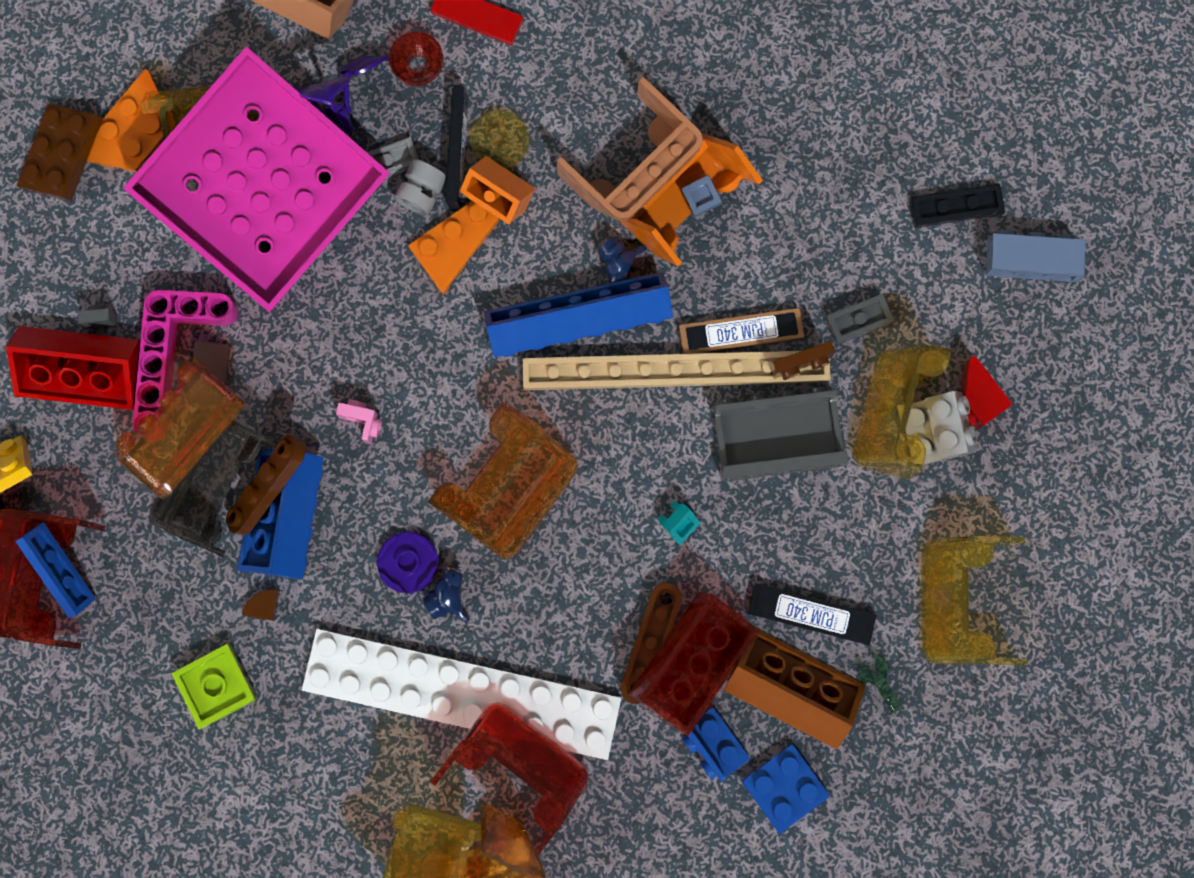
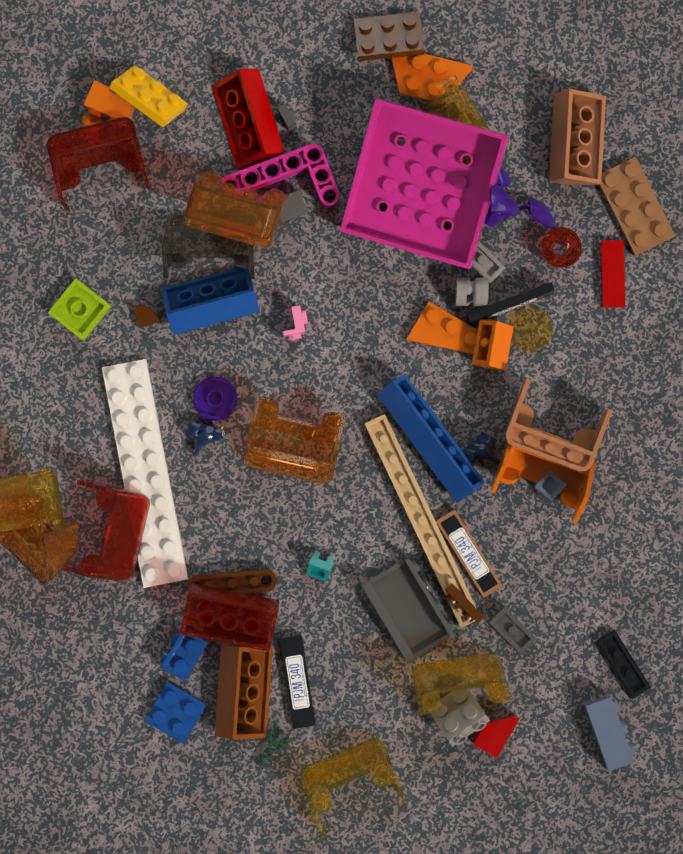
camera: 65 degrees right, 5 degrees up
(55, 570) = (108, 172): blue plate -> none
(266, 485) = (223, 283): reddish brown plate -> none

